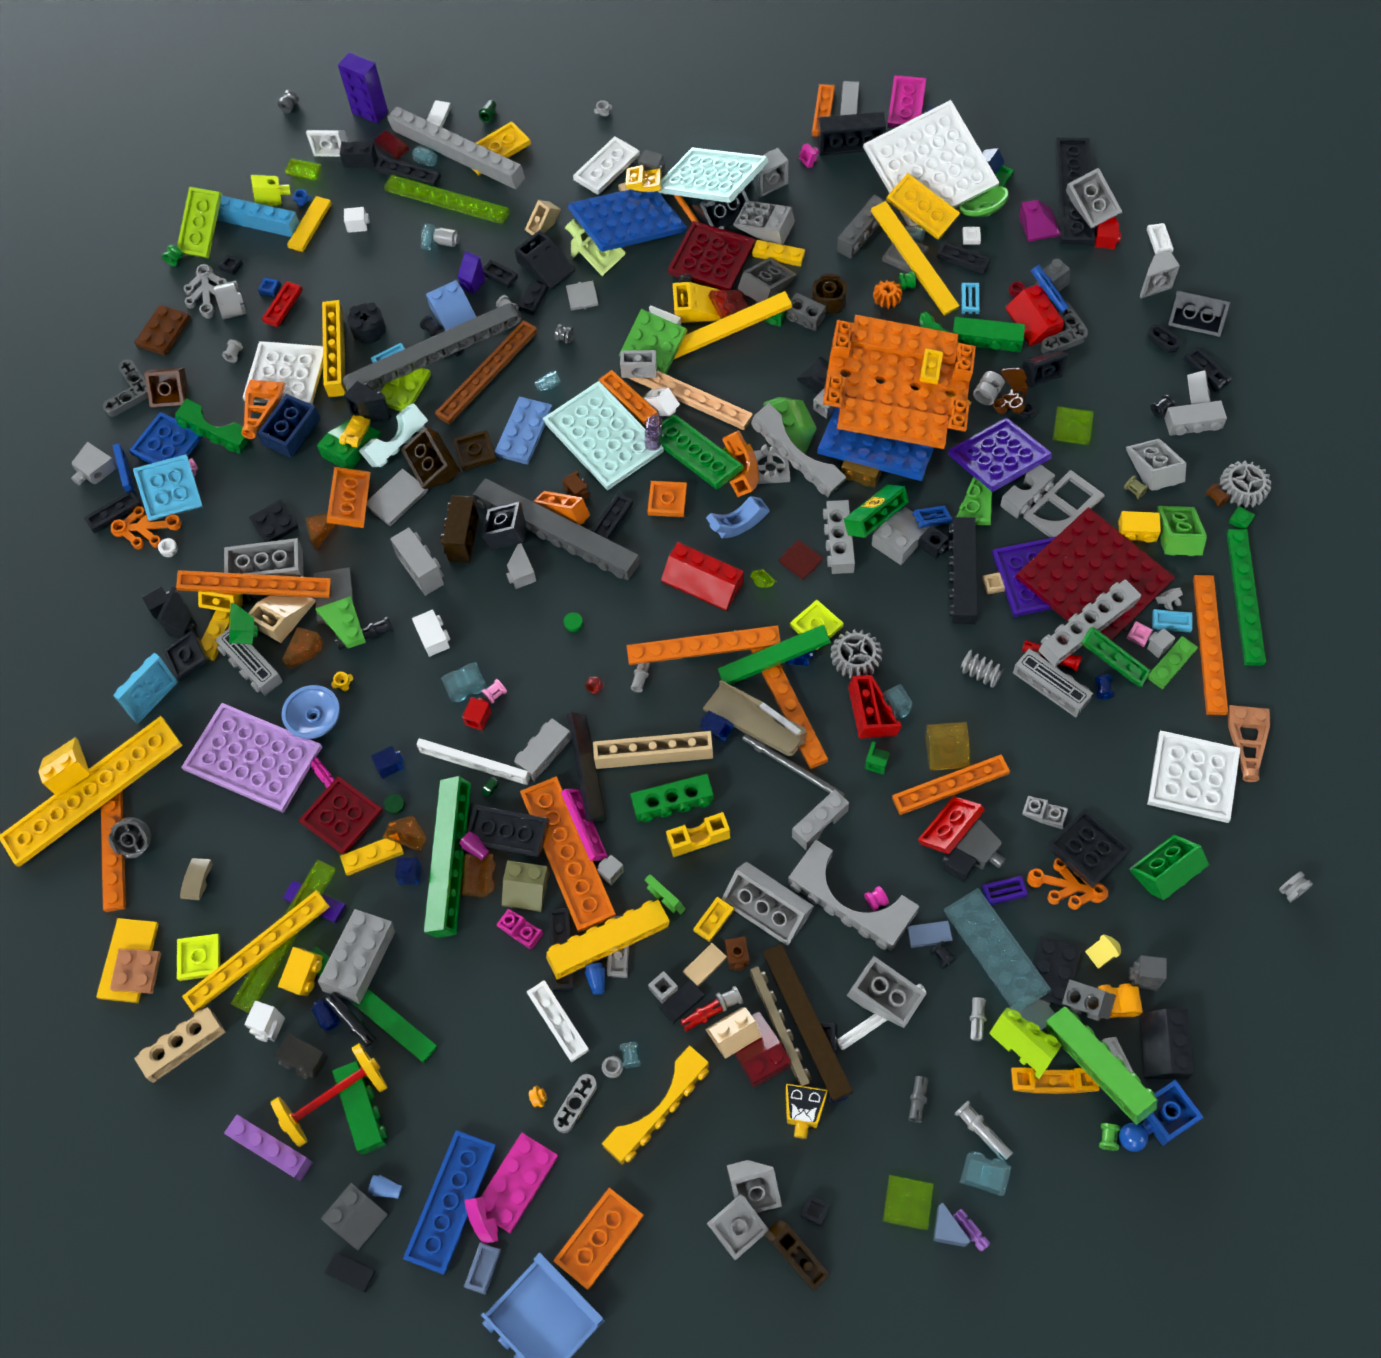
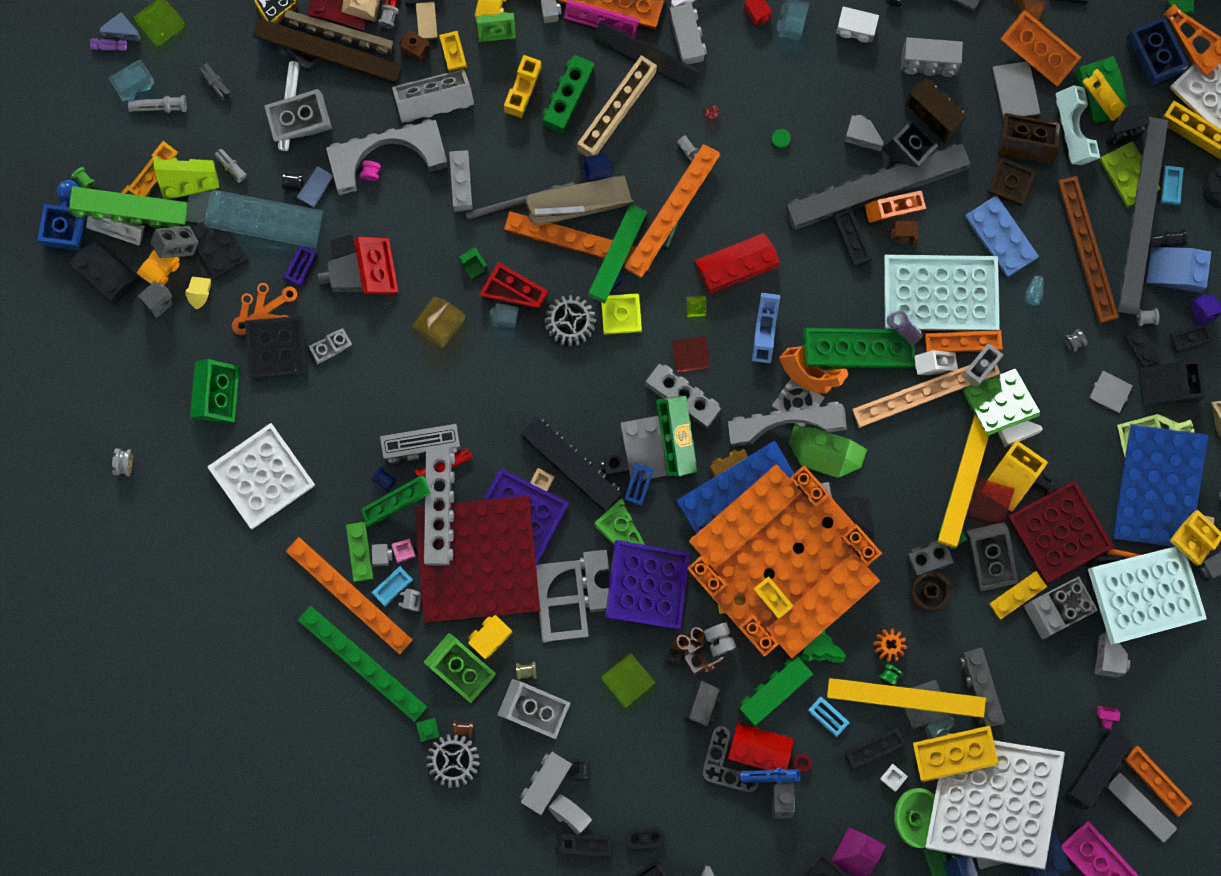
camera: 120 degrees right, 15 degrees up
(494, 691) = (767, 36): bright pink bush -> none
(667, 499) = (834, 294): orange plate -> none
(950, 784) = (408, 297): orange plate -> none
(981, 669) = (476, 400): light grey piece -> none
(1249, 718) = (267, 564): nougat plate -> none

